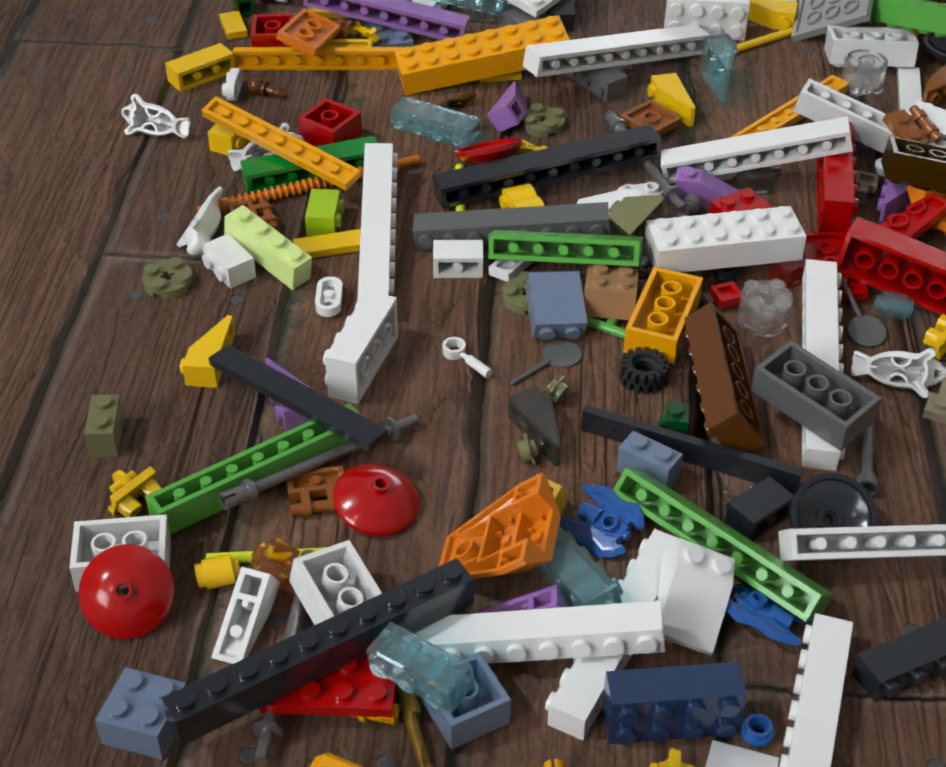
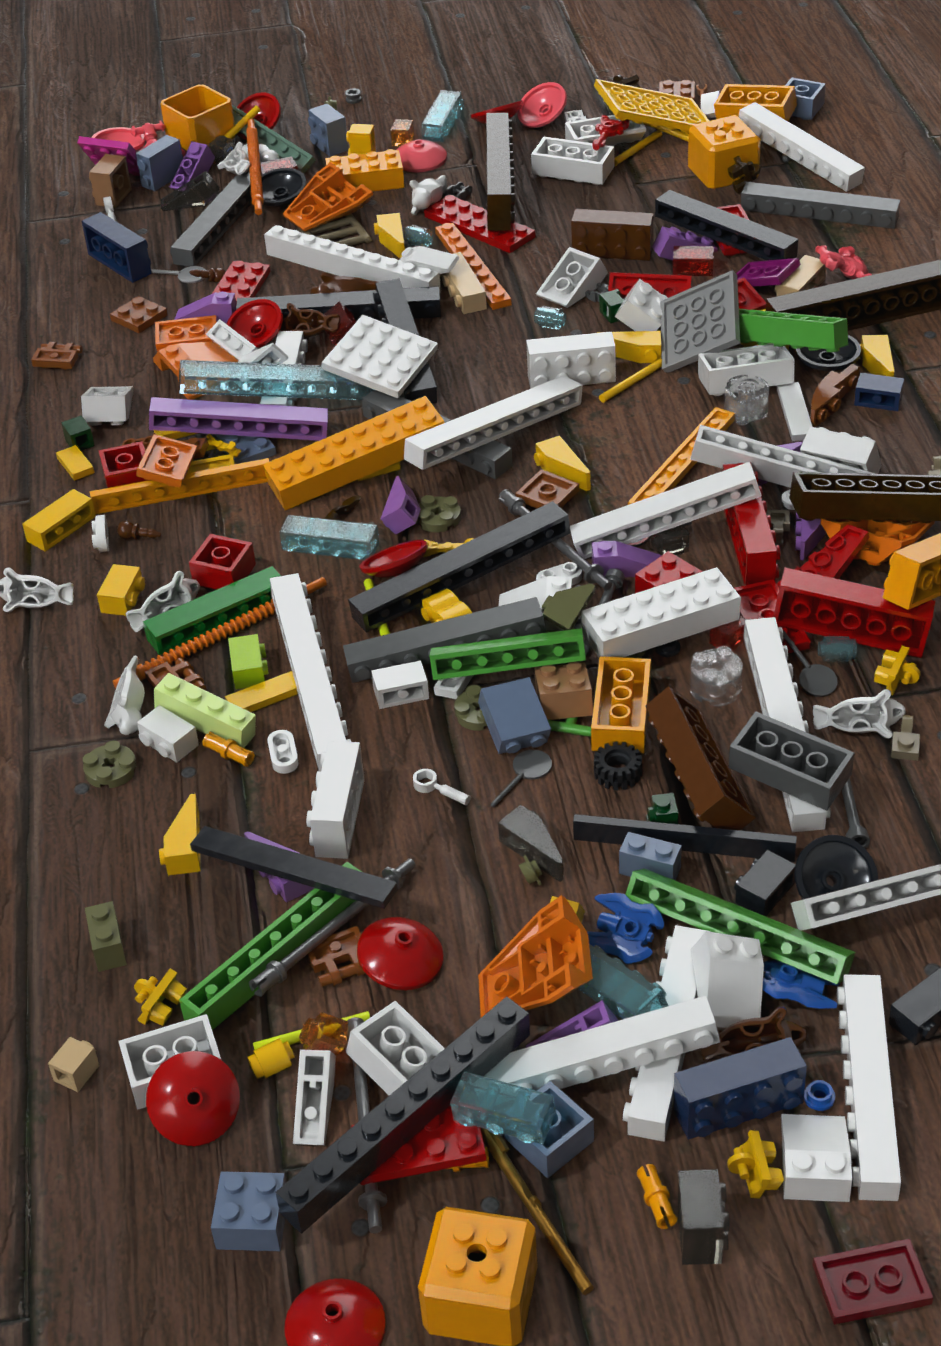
camera: 10 degrees left, 0 degrees up
(31, 535) = (74, 1064): none -> tan brick
(280, 285) = (228, 749): none -> light orange pin
(281, 143) = (181, 594): light orange plate -> none
(557, 389) = (540, 803): olive plate -> none
(706, 650) = (755, 1033): none -> reddish brown animal
(718, 65) = (599, 419): clear light blue slope -> none
(725, 294) = (674, 669): red plate -> none
(905, 125) = (804, 457): dark orange plate -> none

